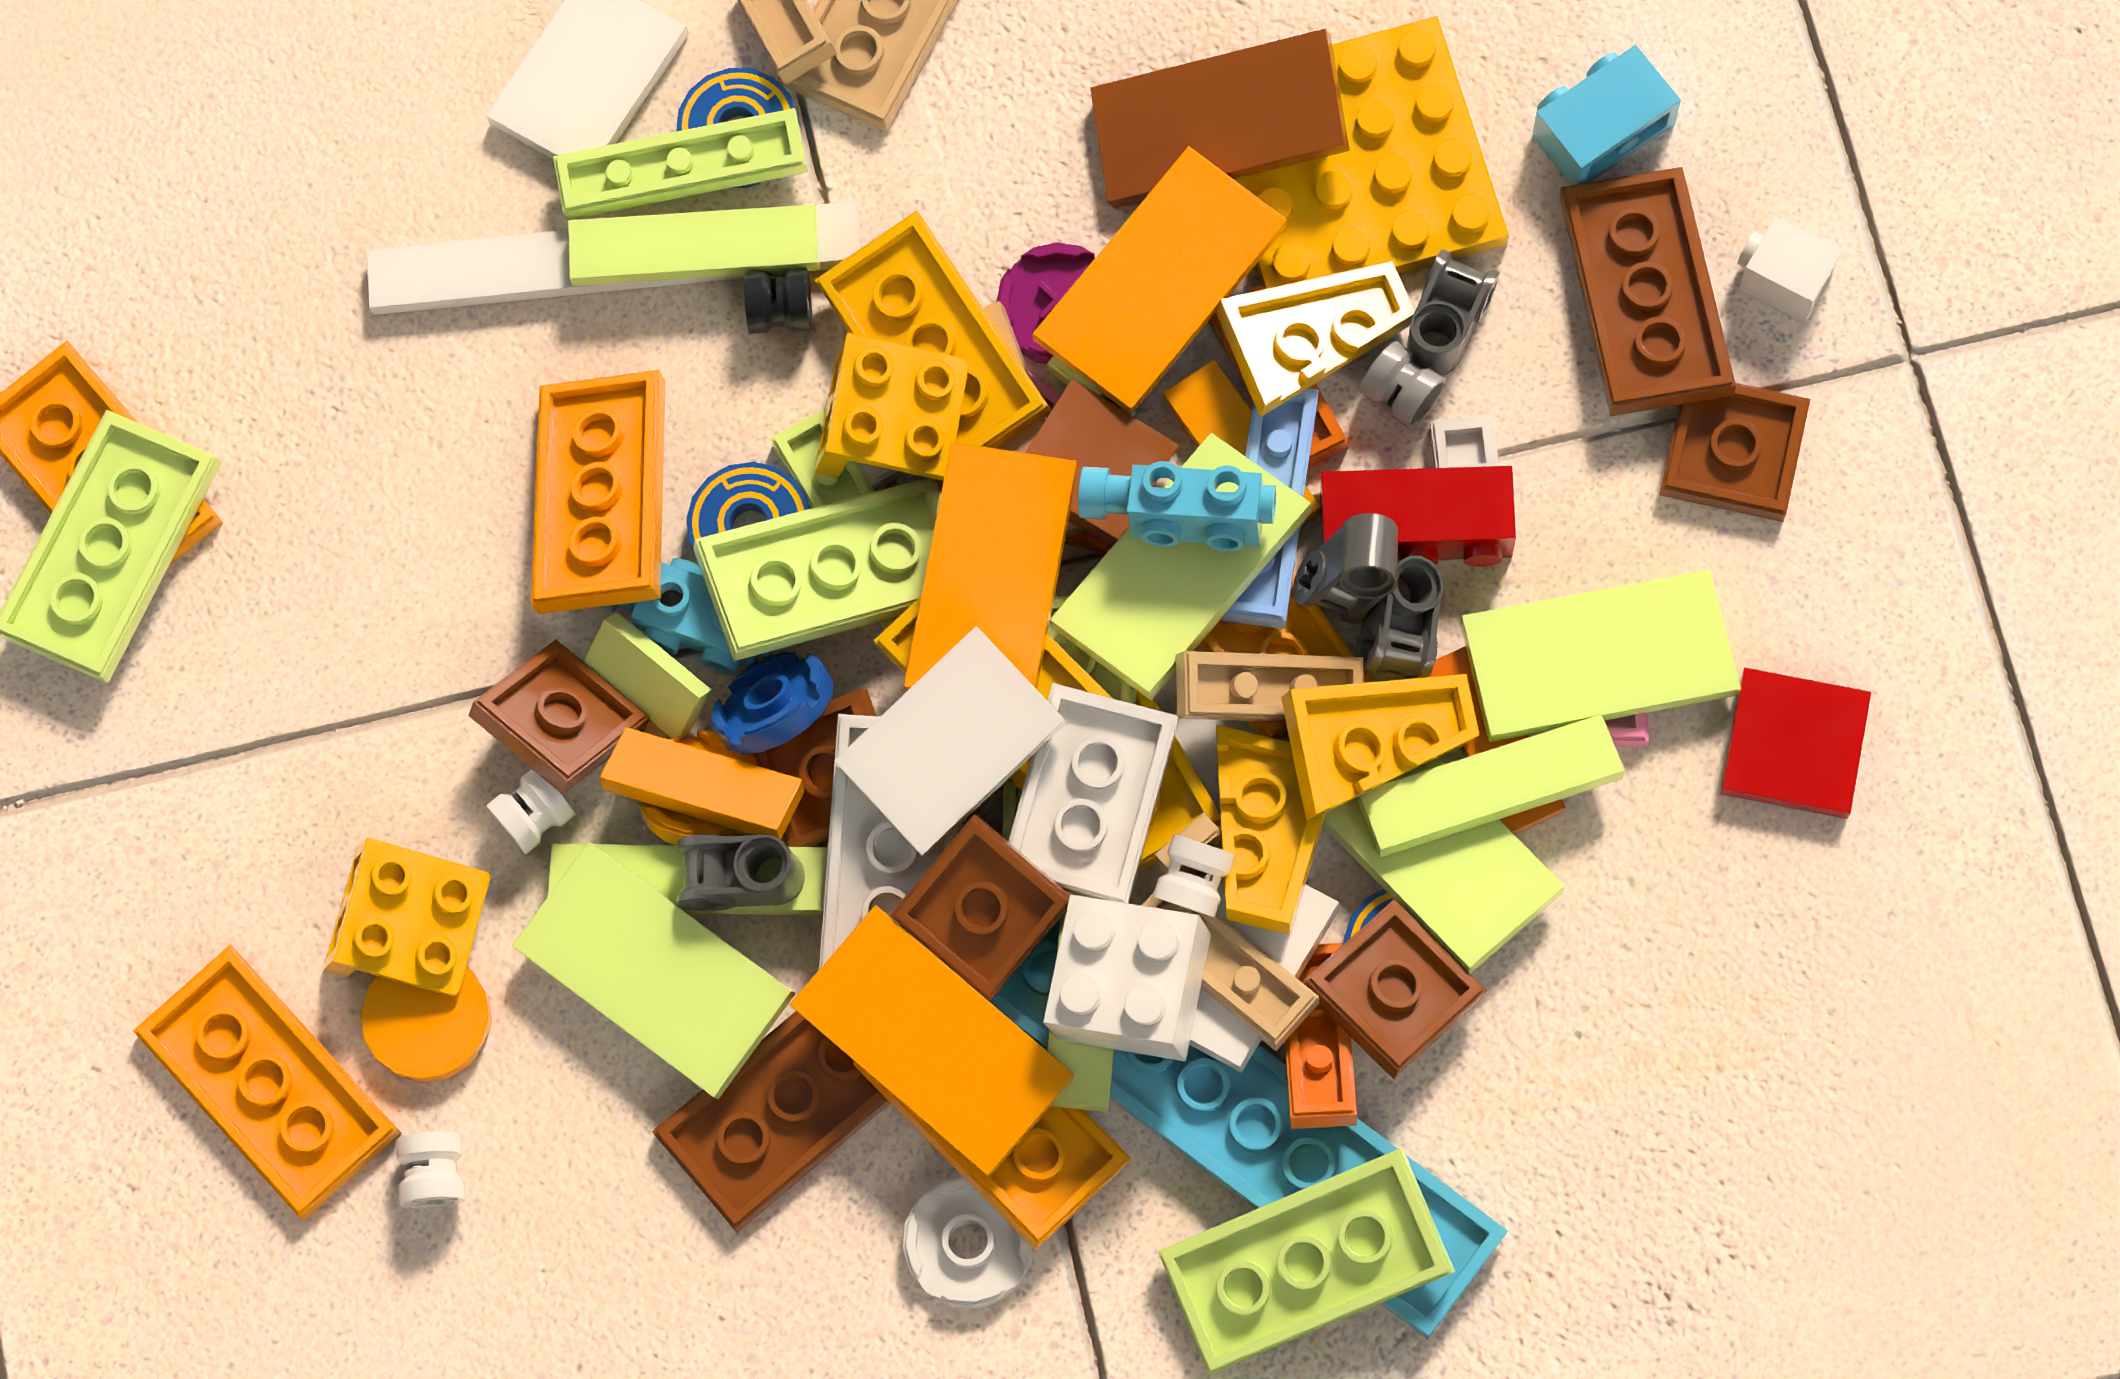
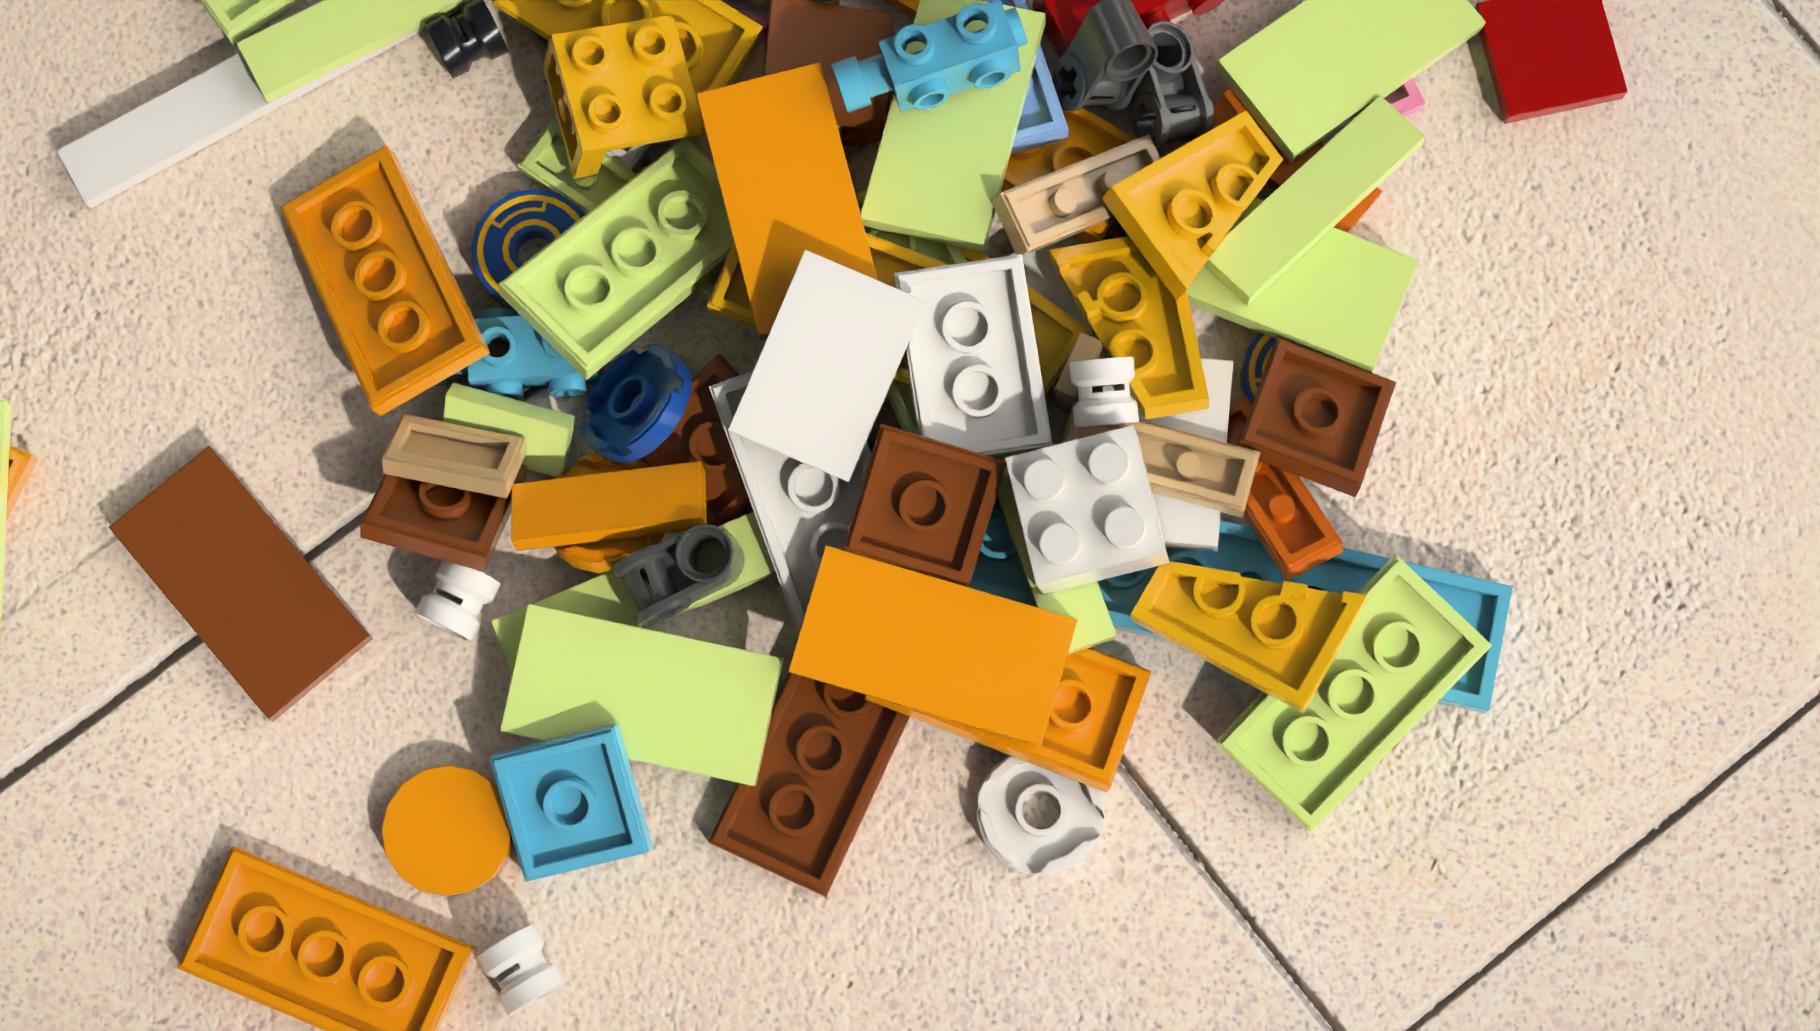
camera: 35 degrees left, 5 degrees up
(347, 712) = (240, 583): none -> dark orange tile
(407, 918) = (388, 749): yellow bracket -> none
(545, 1039) = (571, 802): none -> medium azure tile
(586, 678) = (454, 455): none -> tan tile
(1233, 1155) = (1250, 627): none -> yellow wing

